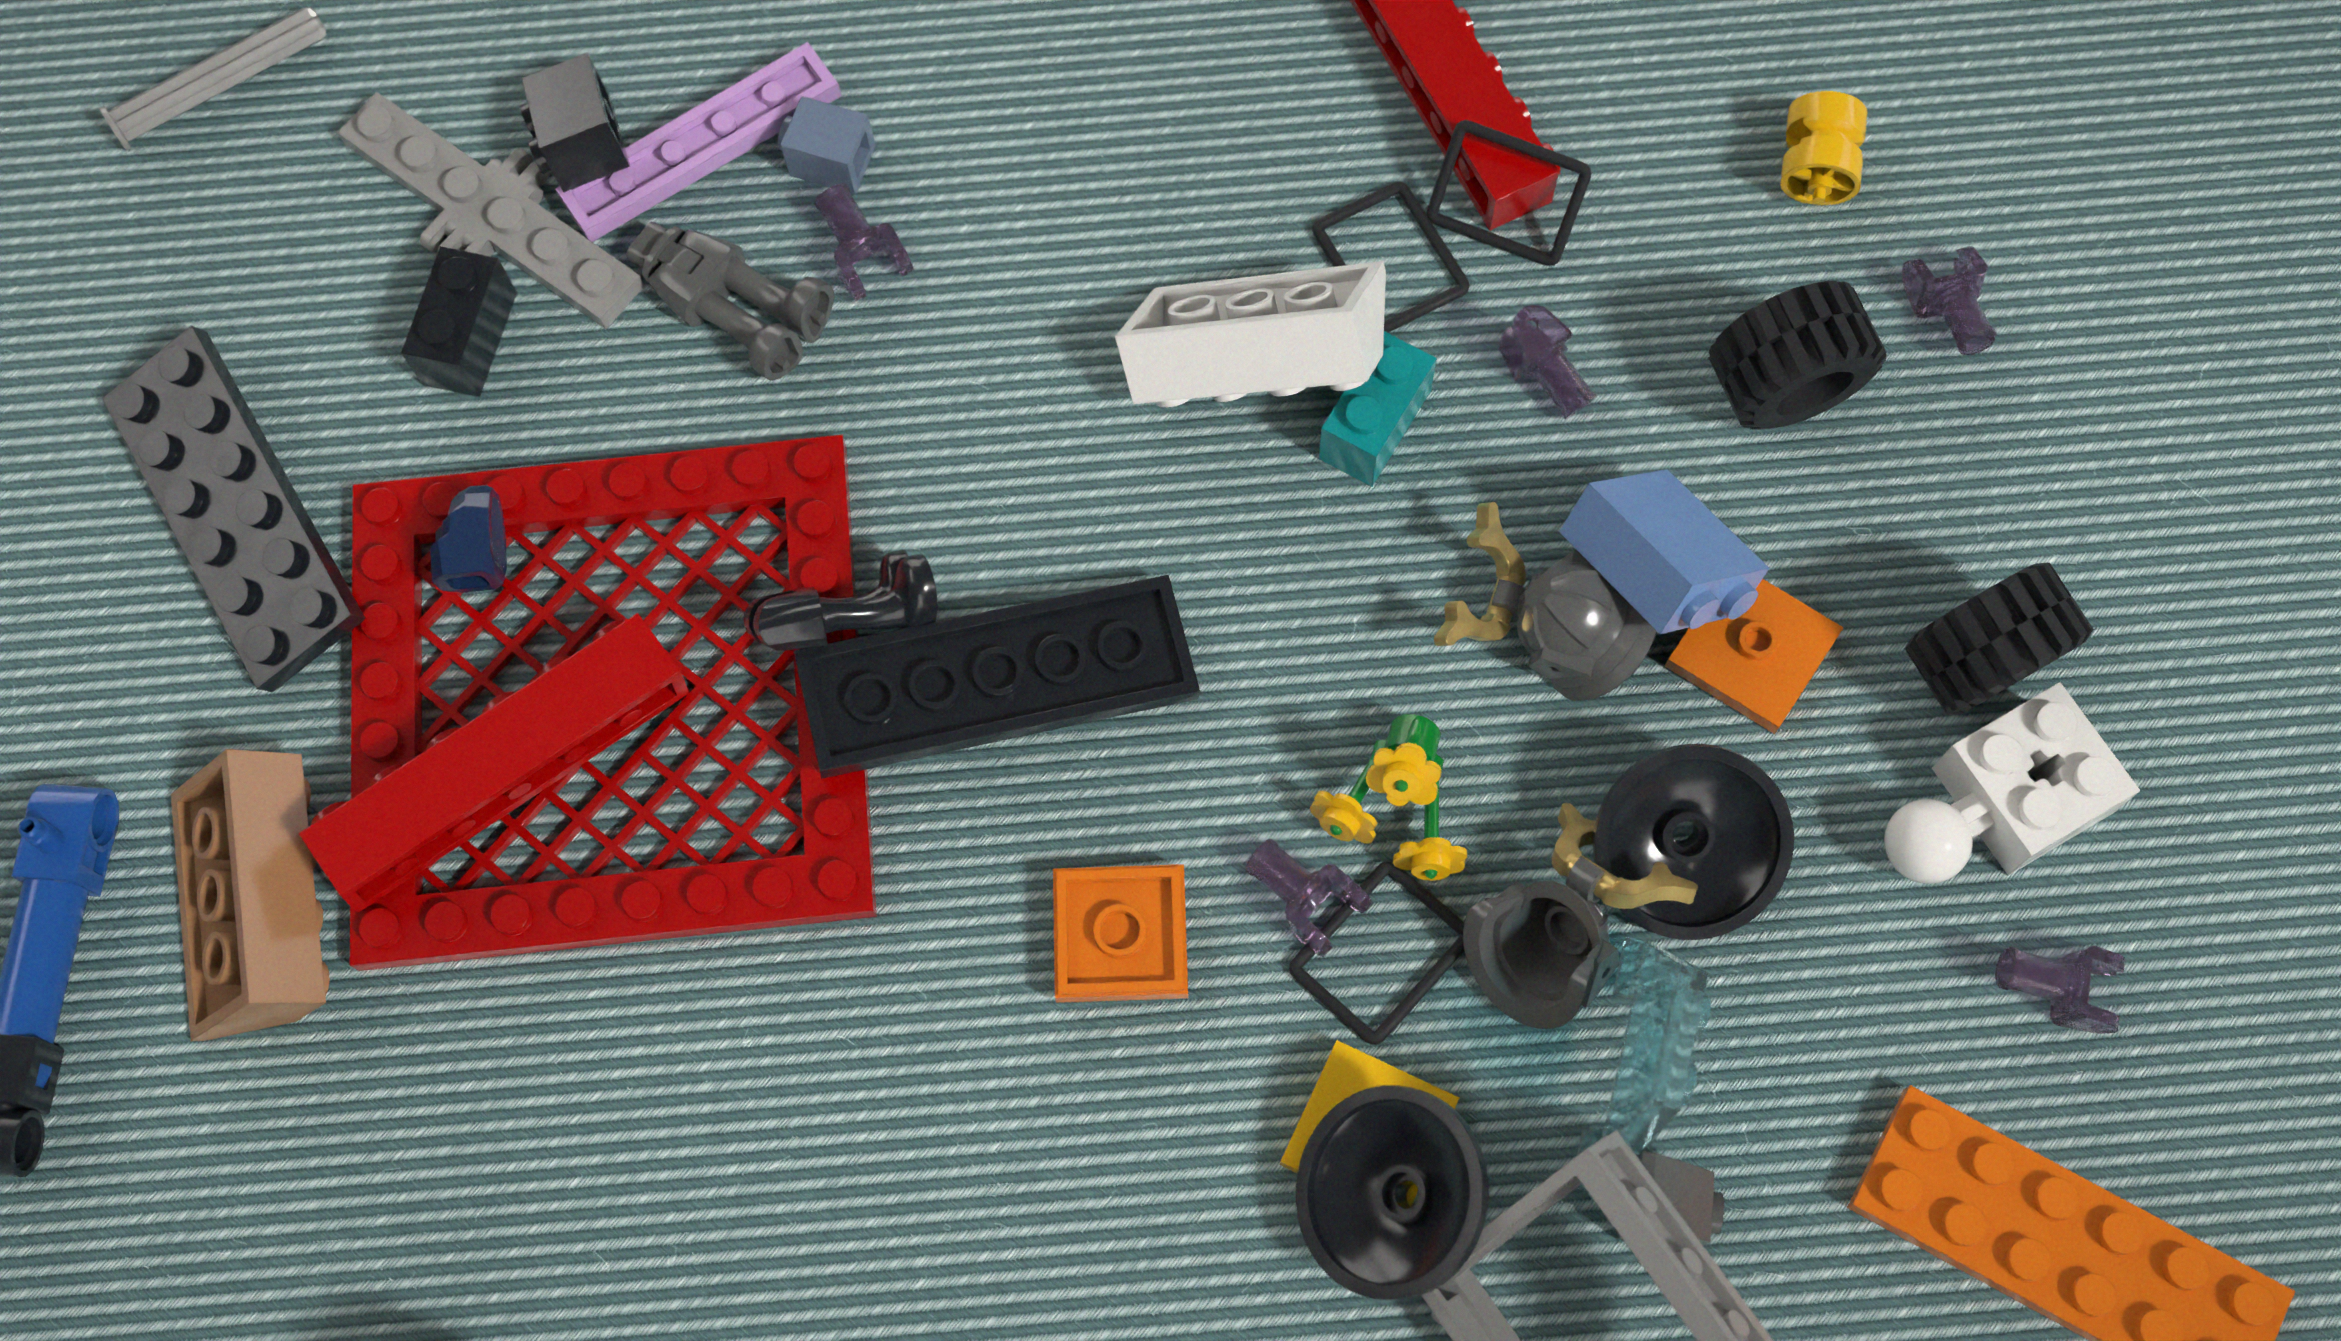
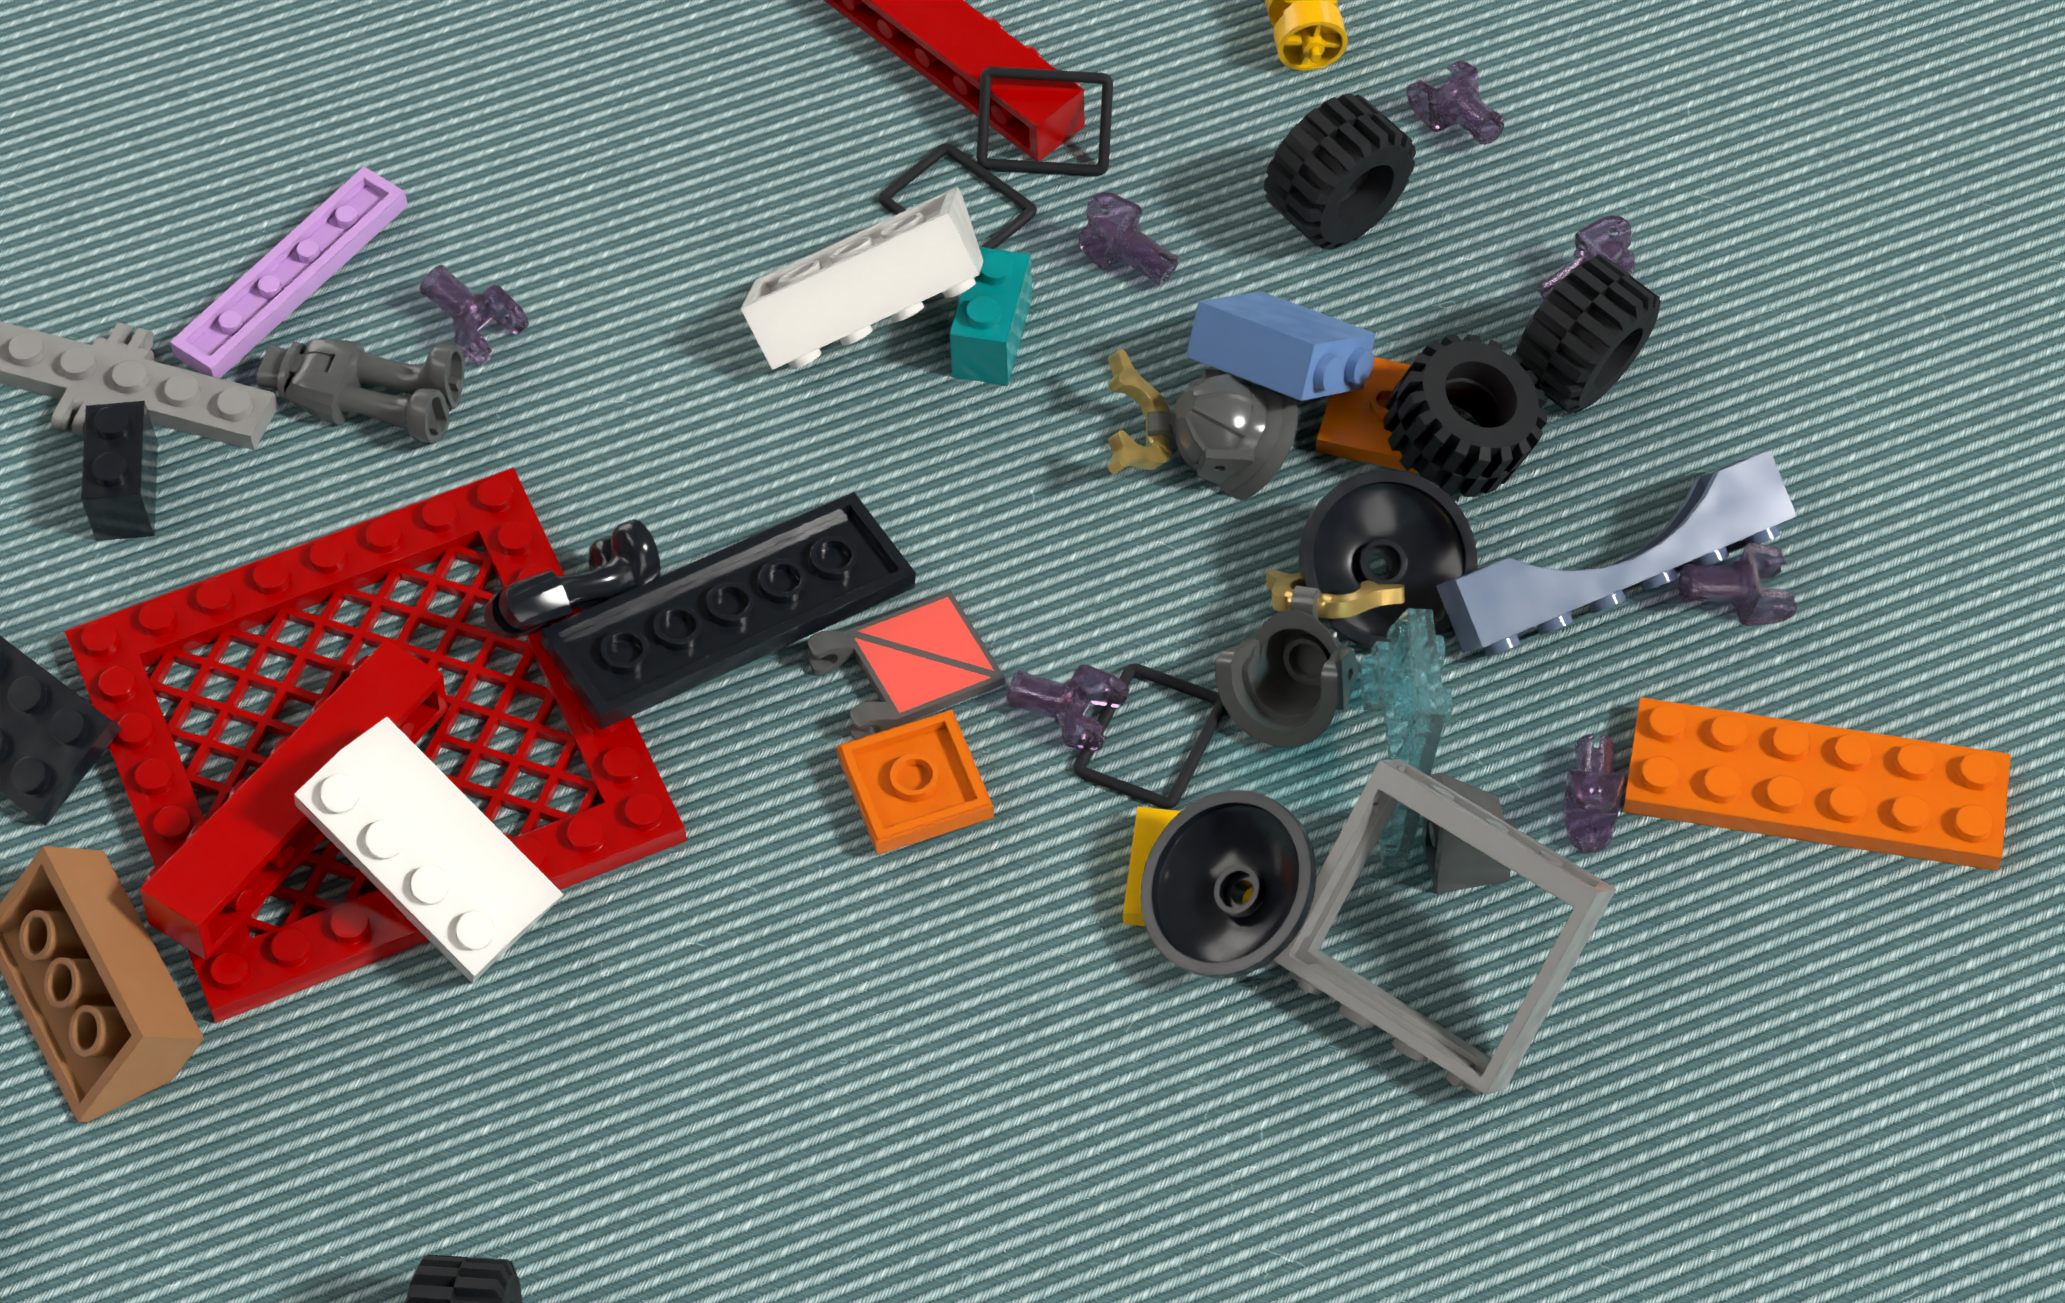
camera: 20 degrees left, 15 degrees down
(471, 543) = (203, 637): dark blue rock -> none
(572, 123) = (170, 281): brick -> none
(596, 875) = (427, 848): none -> white slope
(826, 144) = (410, 241): sand blue brick -> none
(1172, 787) = (914, 661): none -> flag
(1407, 771) = (1119, 570): yellow plant -> none
(1819, 1191) = (1592, 795): none -> clear purple piece
(1879, 686) = (1487, 387): none -> black tyre
(2000, 802) = (1642, 448): white brick -> none
(2041, 537) = (1595, 241): none -> clear purple piece
(2075, 892) = (1720, 509): none -> arch

